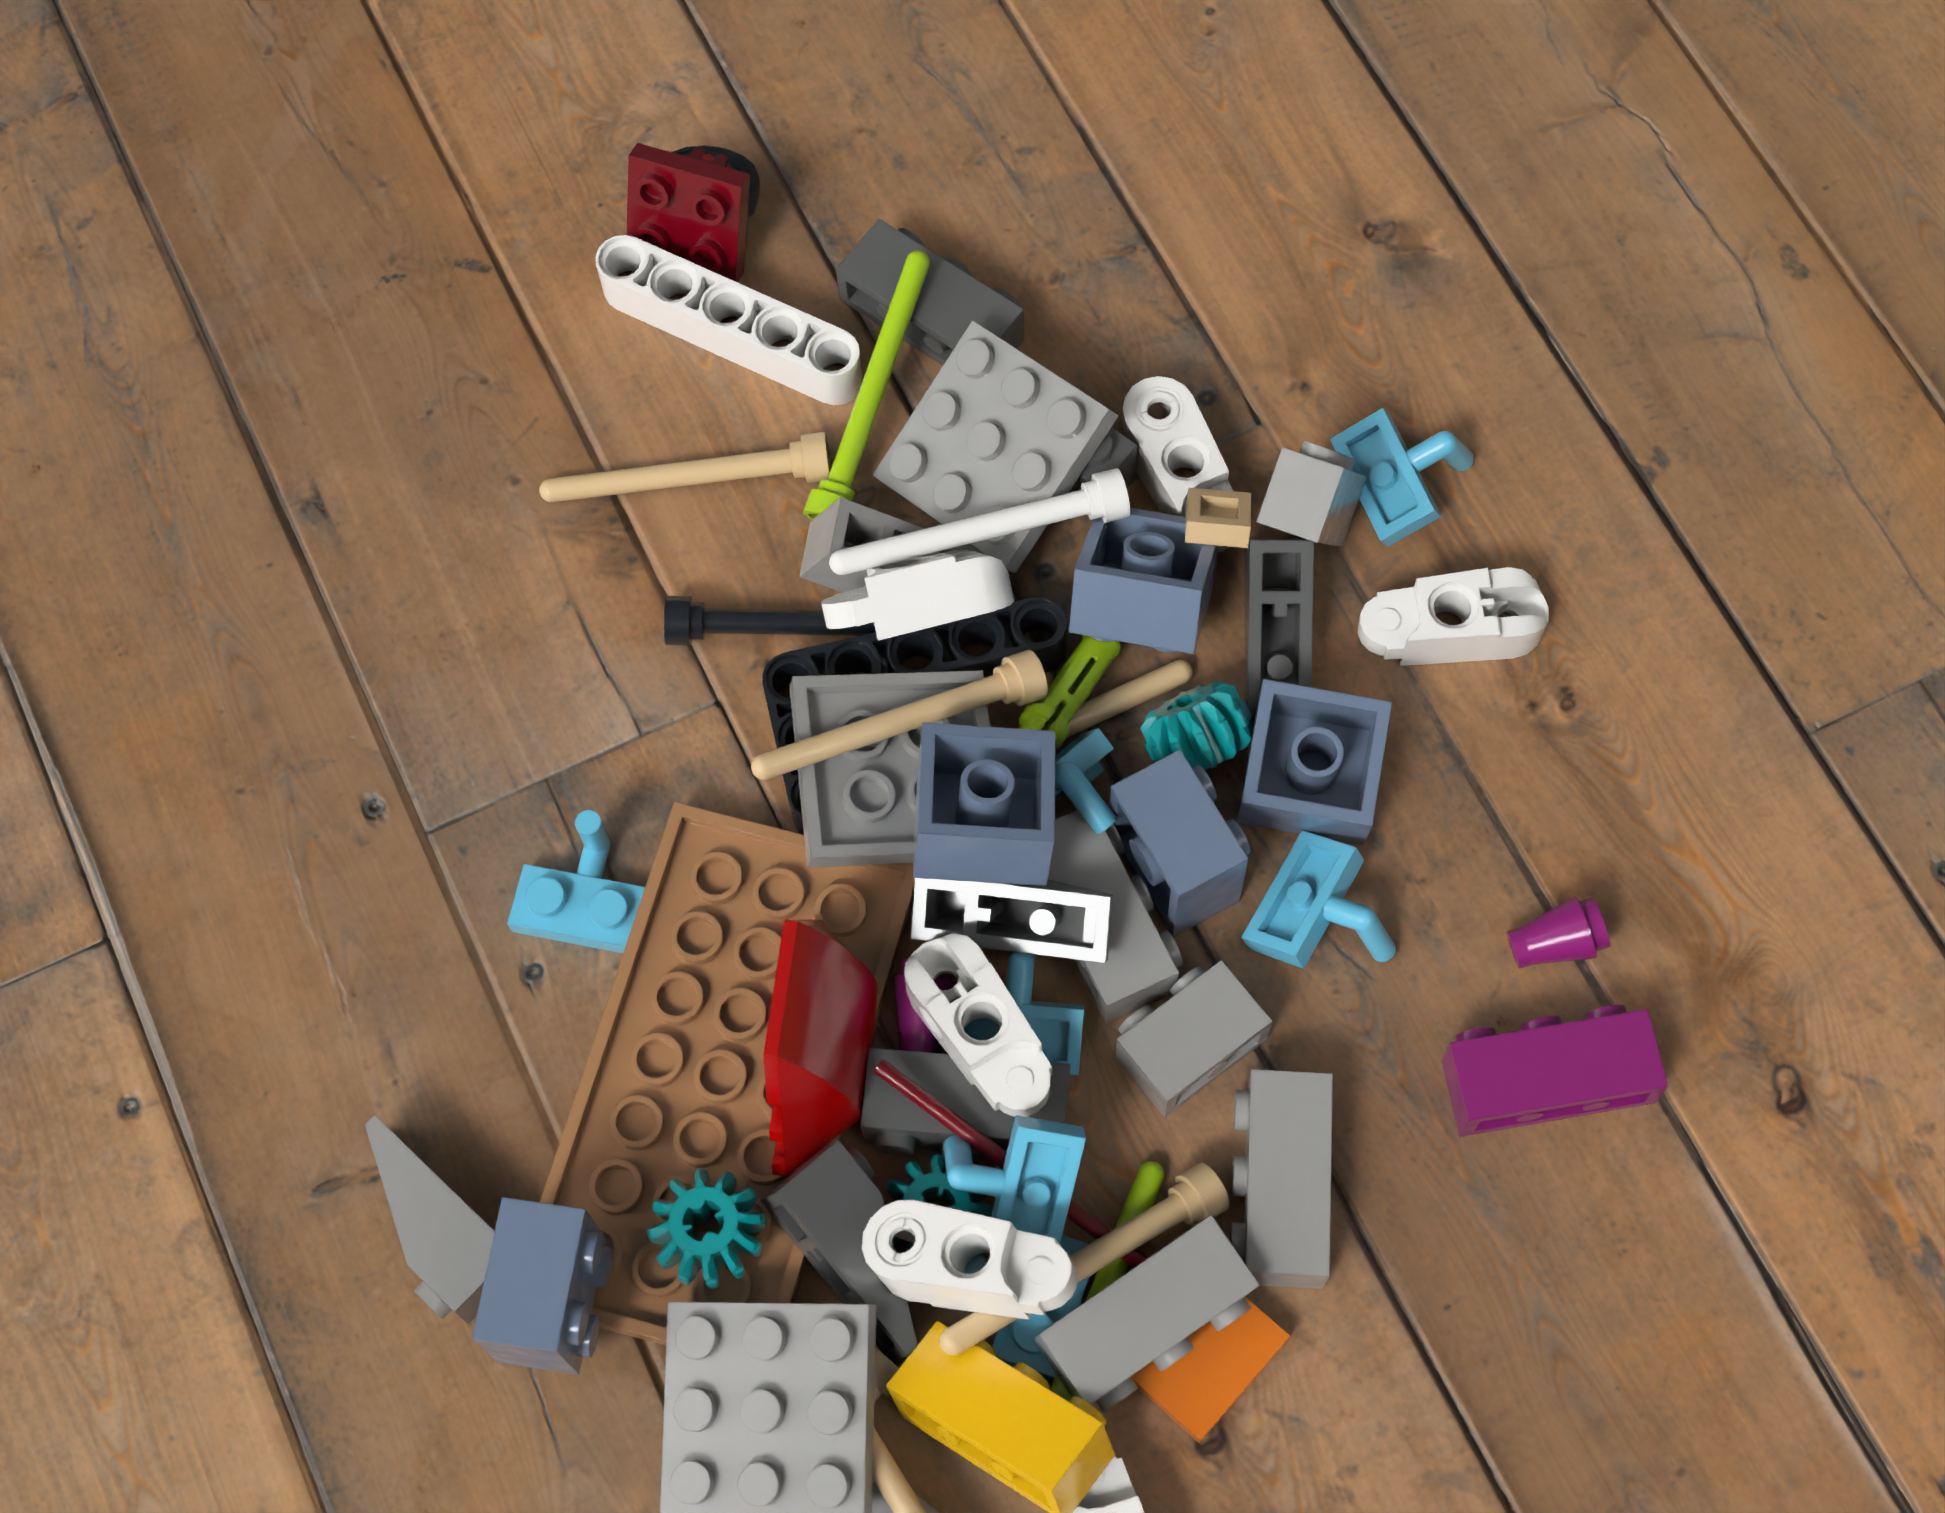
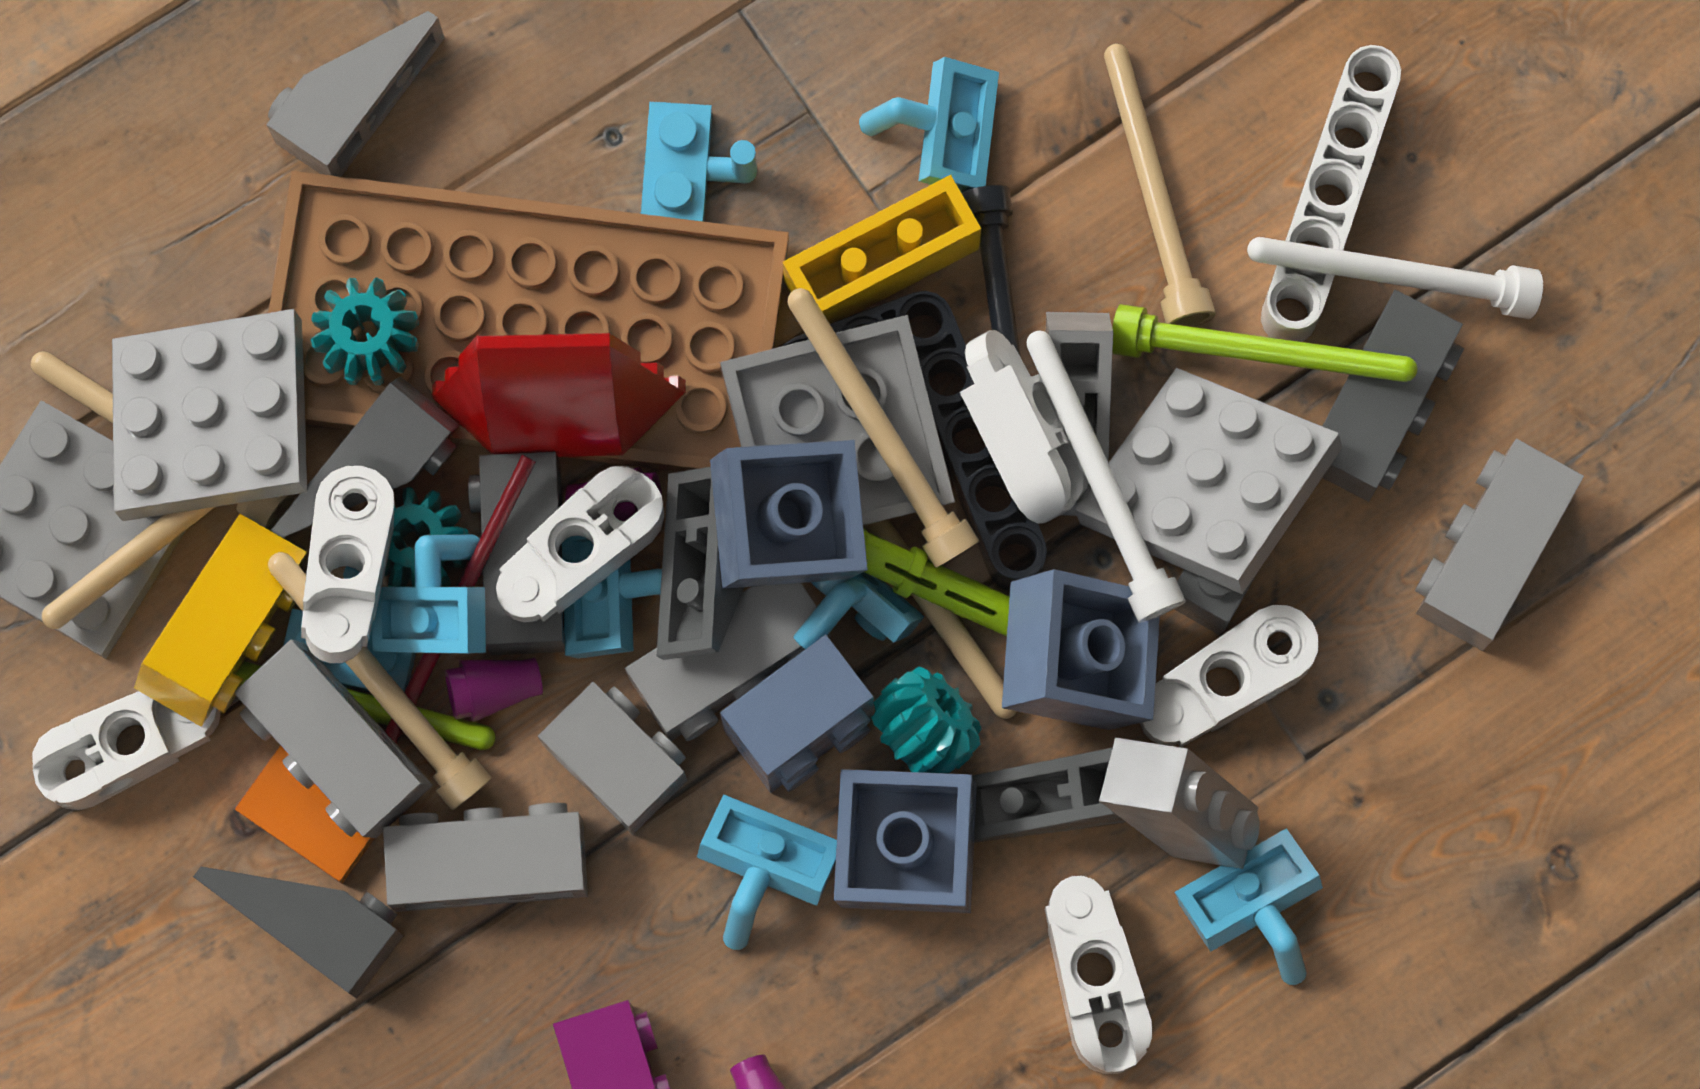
camera: 80 degrees right, 10 degrees up
(542, 1286) = (283, 193): sand blue brick -> none
(589, 636) = (954, 122): none -> medium azure plate
(693, 204) = (1458, 134): dark red plate -> none
(715, 710) = (886, 251): none -> yellow brick
(848, 188) = (1513, 291): none -> white piece
(1086, 229) = (1496, 543): none -> light grey brick
(1106, 1163) = (489, 686): none -> magenta cone
(1218, 517) = (1151, 710): tan tile -> none
(1339, 1356) = (319, 924): none -> dark grey slope

